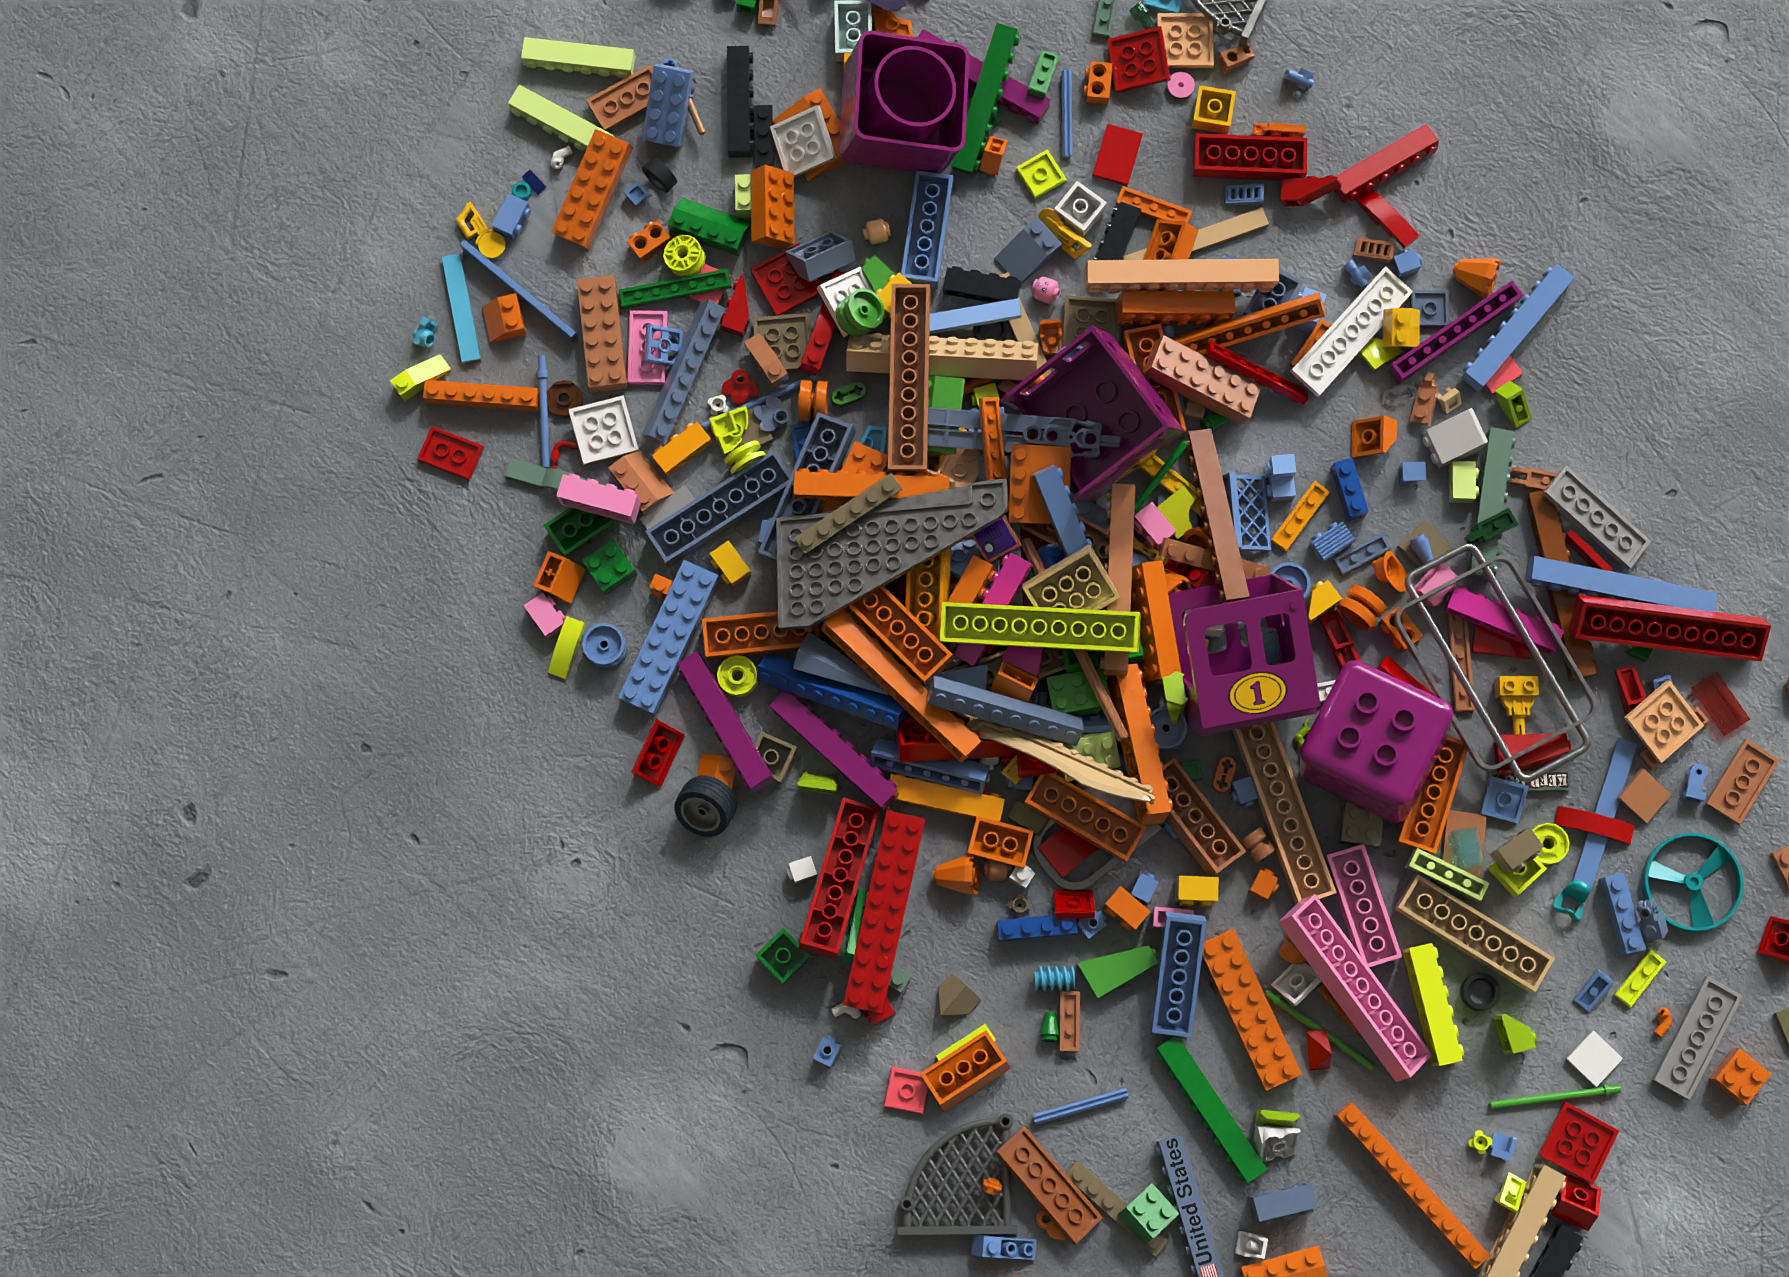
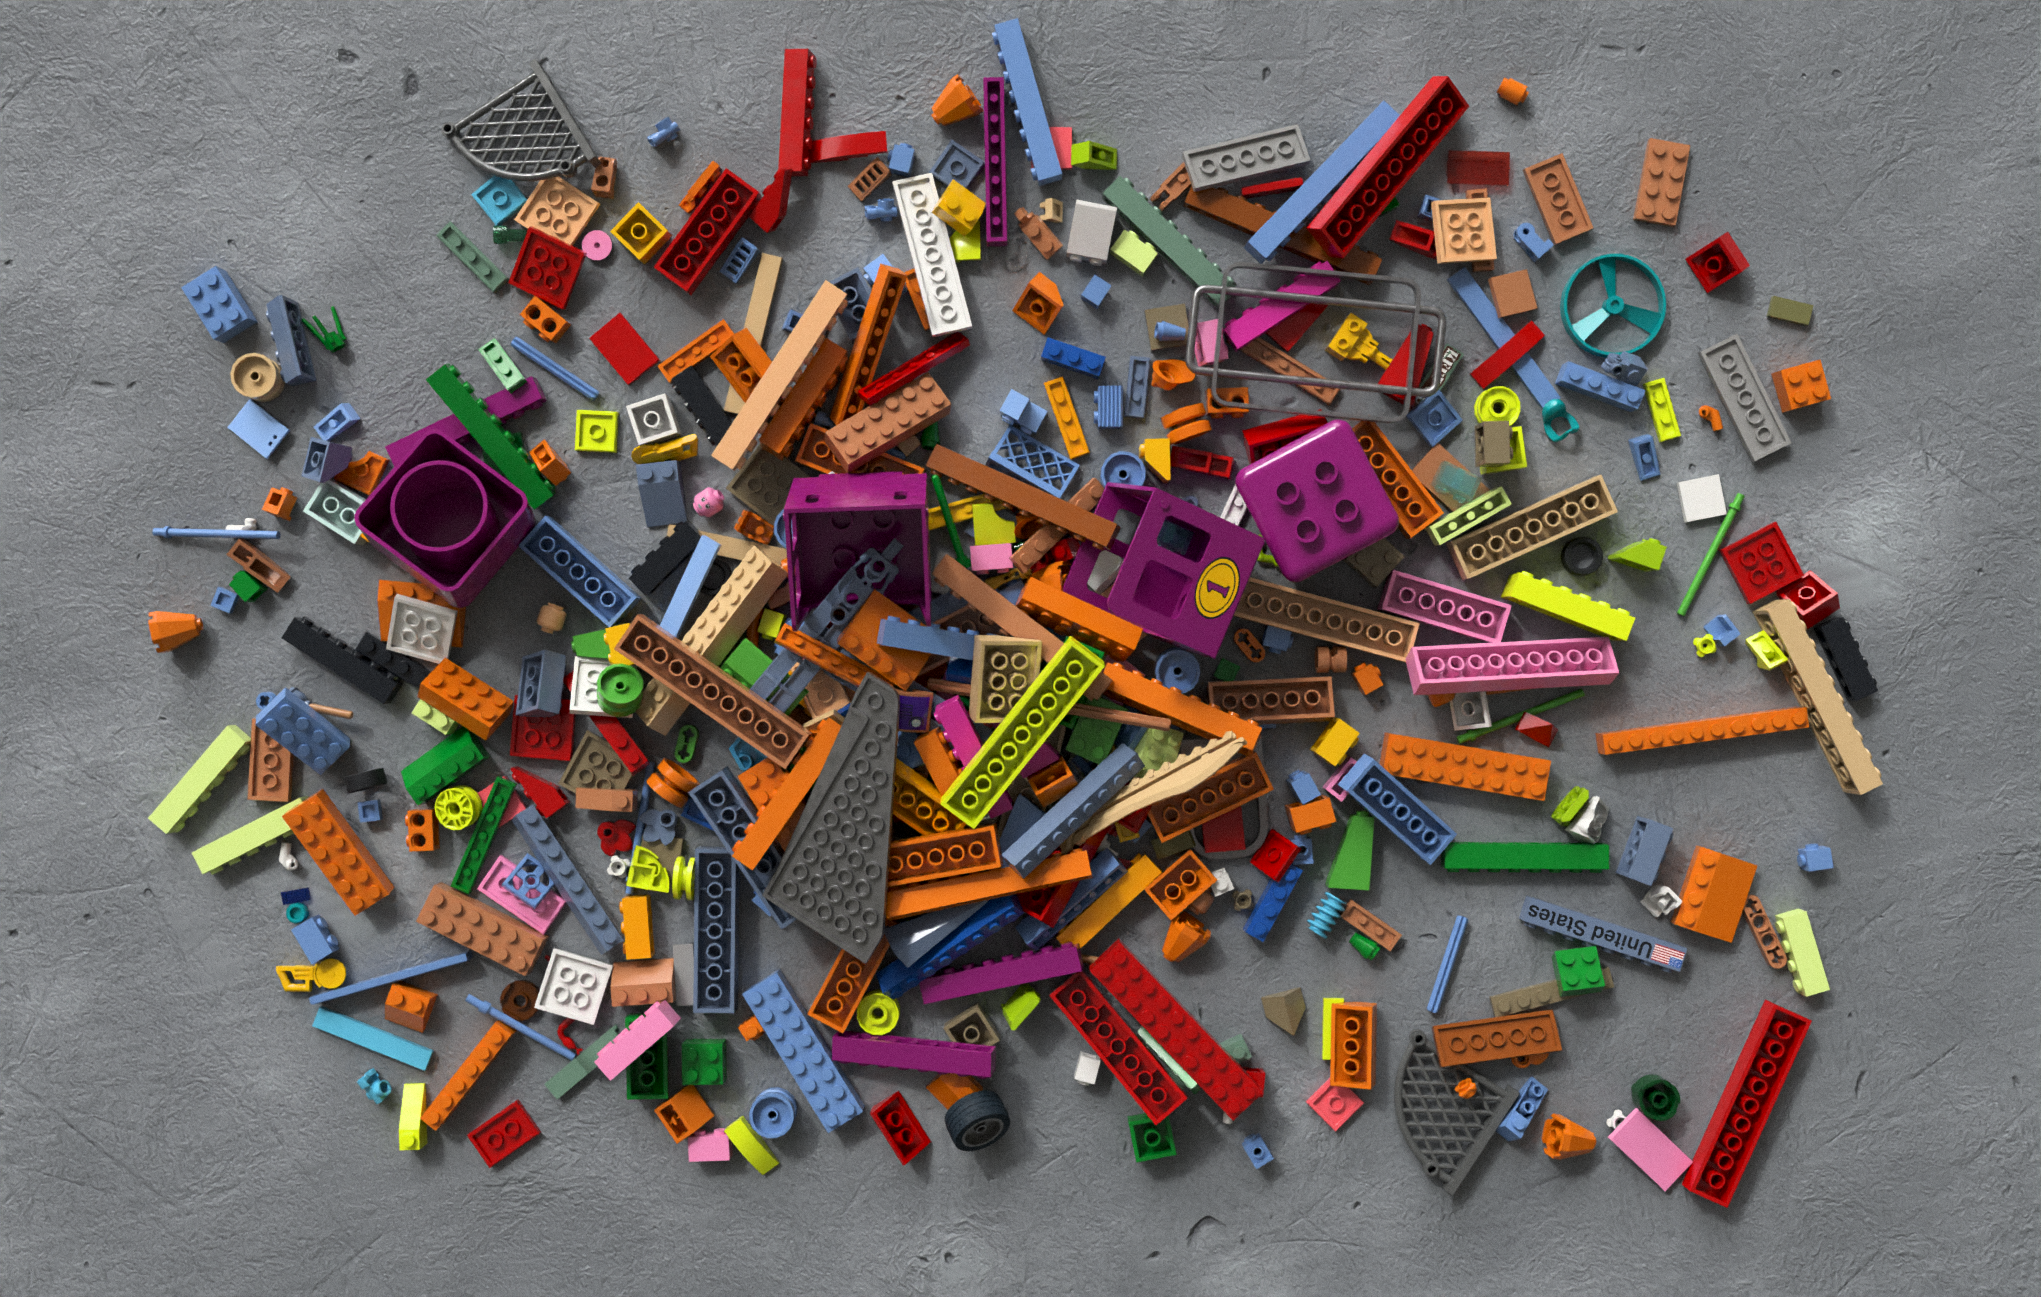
camera: 55 degrees left, 10 degrees up
(730, 564) = (772, 952): yellow brick -> none
(848, 513) = (802, 833): dark tan plate -> none
(1175, 695) = (1158, 650): lime slope -> none
(1492, 527) = (1194, 257): dark green hinge -> none

